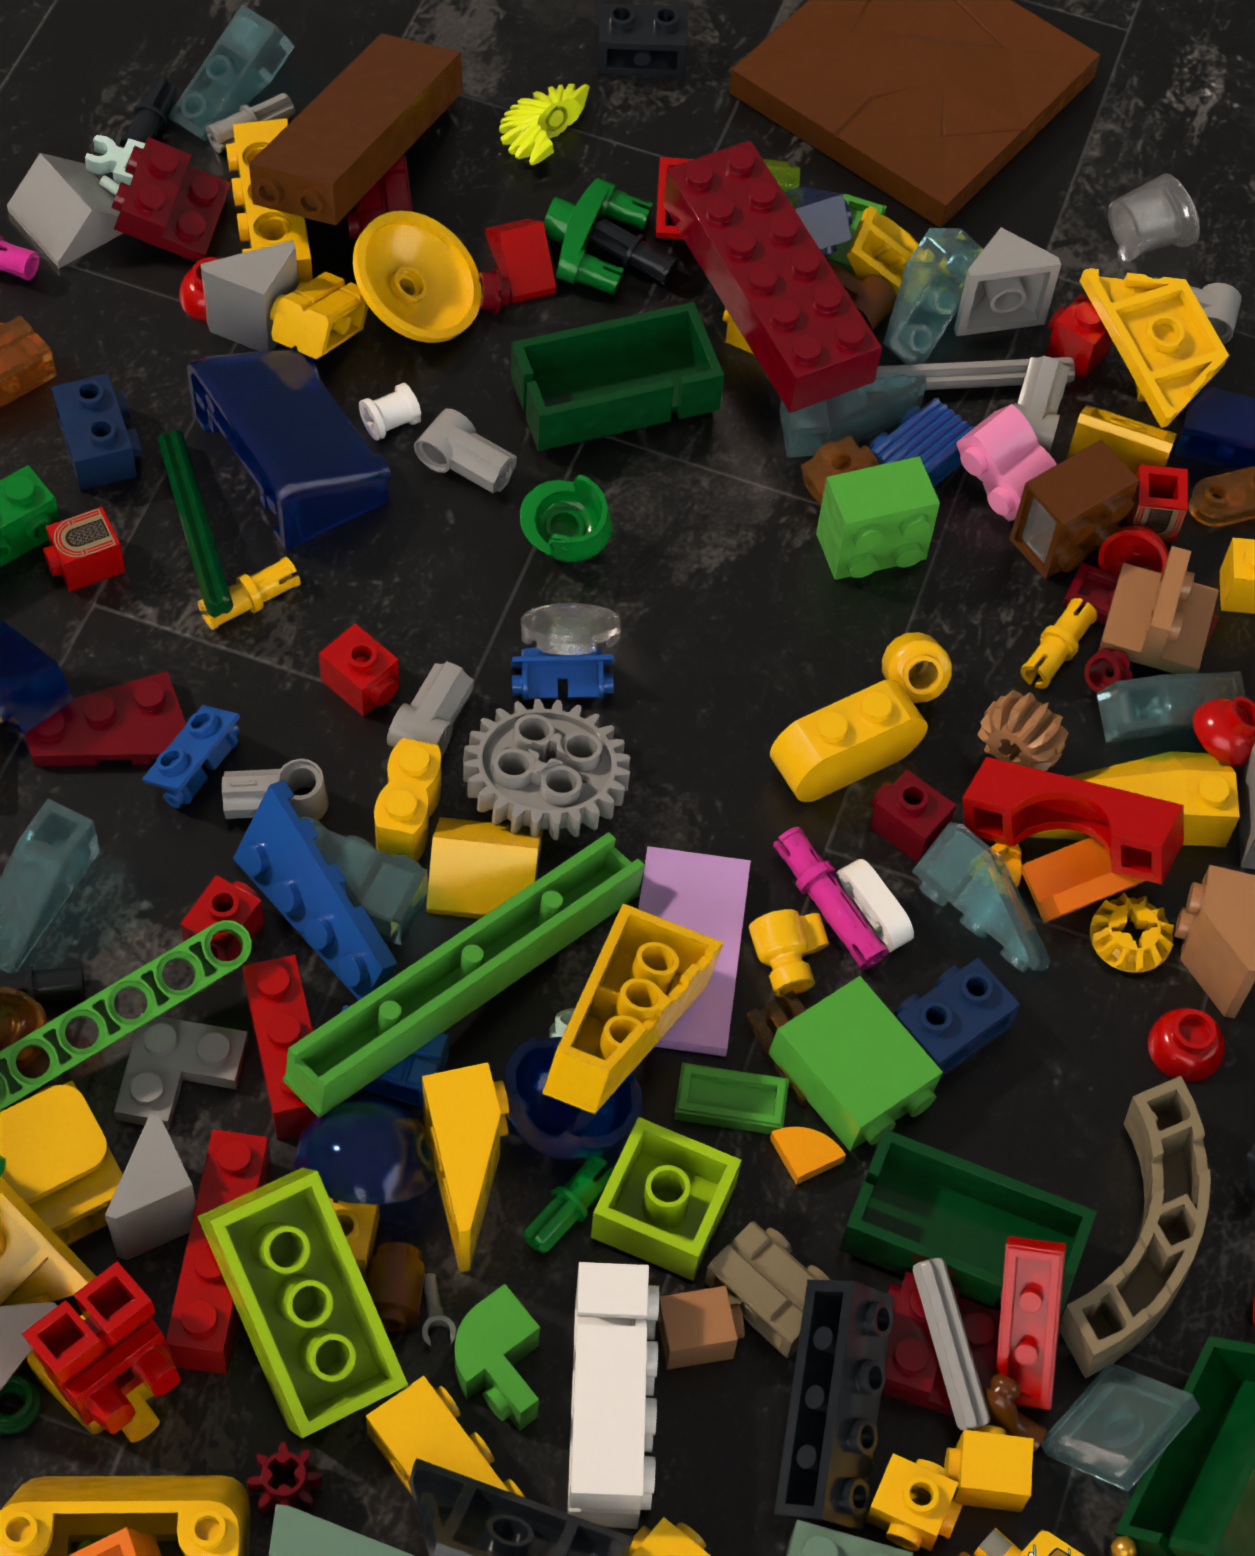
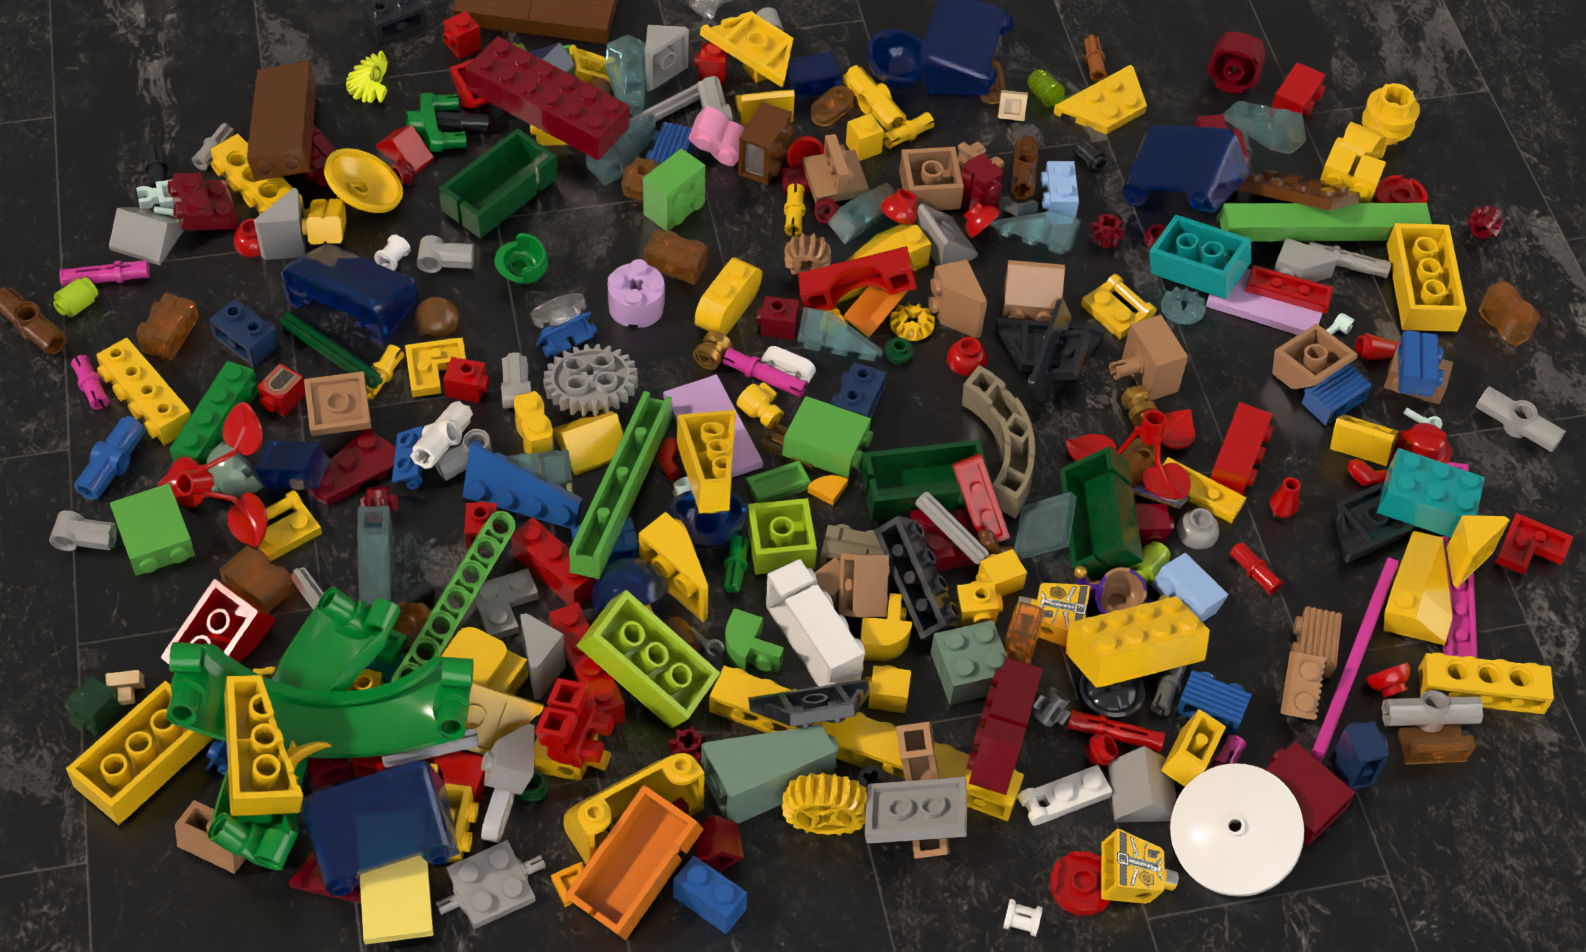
camera: 30 degrees left, 5 degrees down
(100, 800) = (380, 497): none -> dark red gear
(137, 615) = (337, 403): none -> medium nougat bracket
(233, 72) = (186, 125): clear light blue slope -> none
(256, 743) = (441, 435): none -> white piece
(326, 608) = (427, 359): none -> yellow plate
(387, 546) = (436, 317): none -> clear orange hair
(580, 960) = (666, 458): none -> red arm
(708, 661) = (636, 294): none -> lavender brick
(720, 113) = (462, 35): none -> red brick
(728, 1476) = (886, 637): none -> yellow brick
(737, 1364) = (863, 585): none -> medium nougat brick
(768, 815) = (710, 352): none -> pearl gold wheel
(814, 628) = (676, 255): none -> clear orange brick
(932, 670) = (737, 245): yellow head -> none
(1075, 985) = (898, 356): none -> dark green plate
(1160, 500) = (804, 119): red brick -> none

